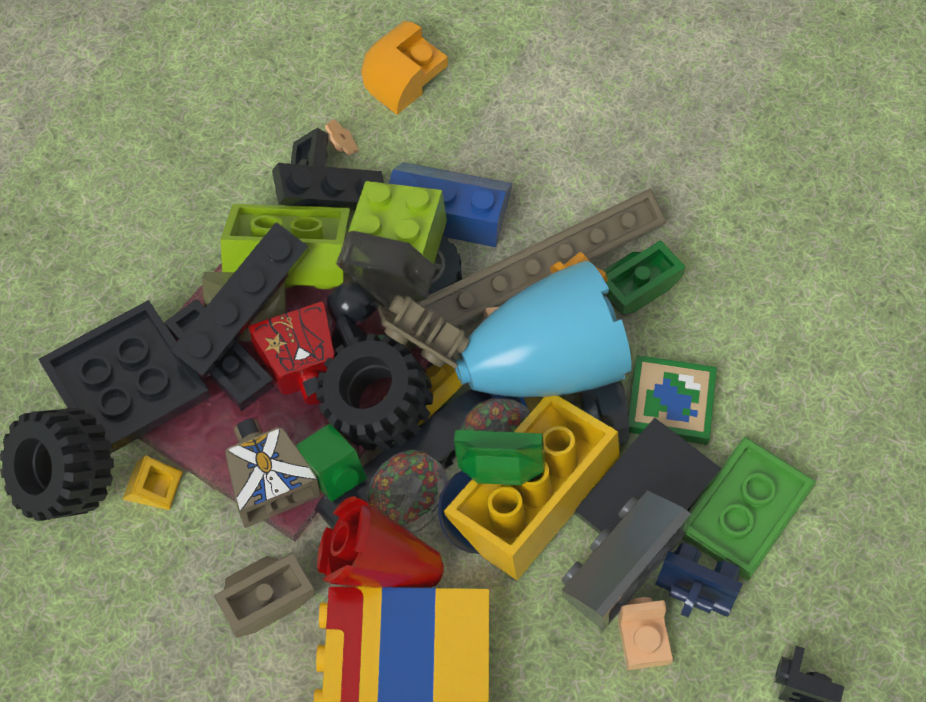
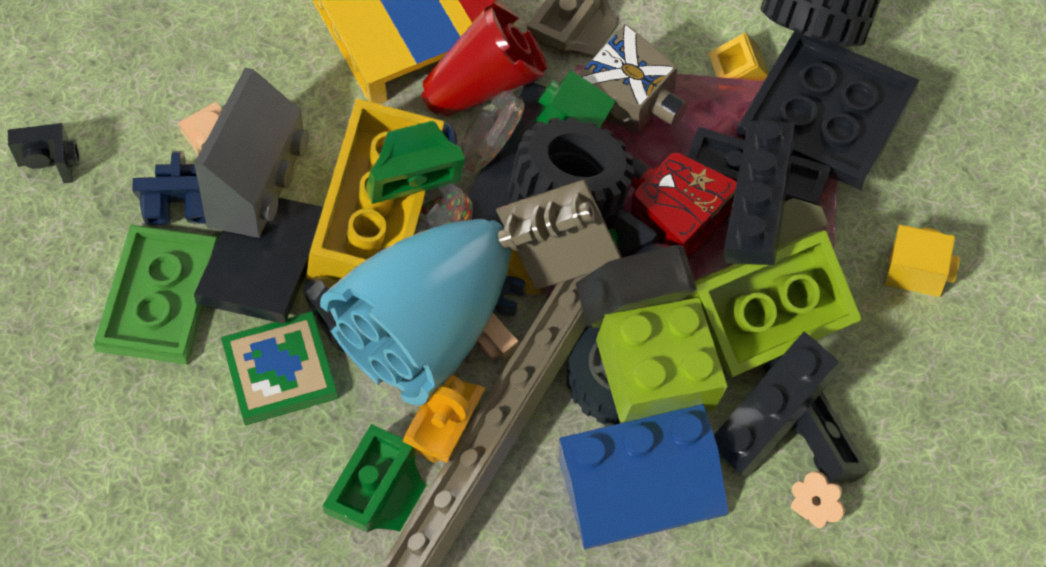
camera: 155 degrees right, 0 degrees up
(148, 248) = (922, 260): none -> yellow brick

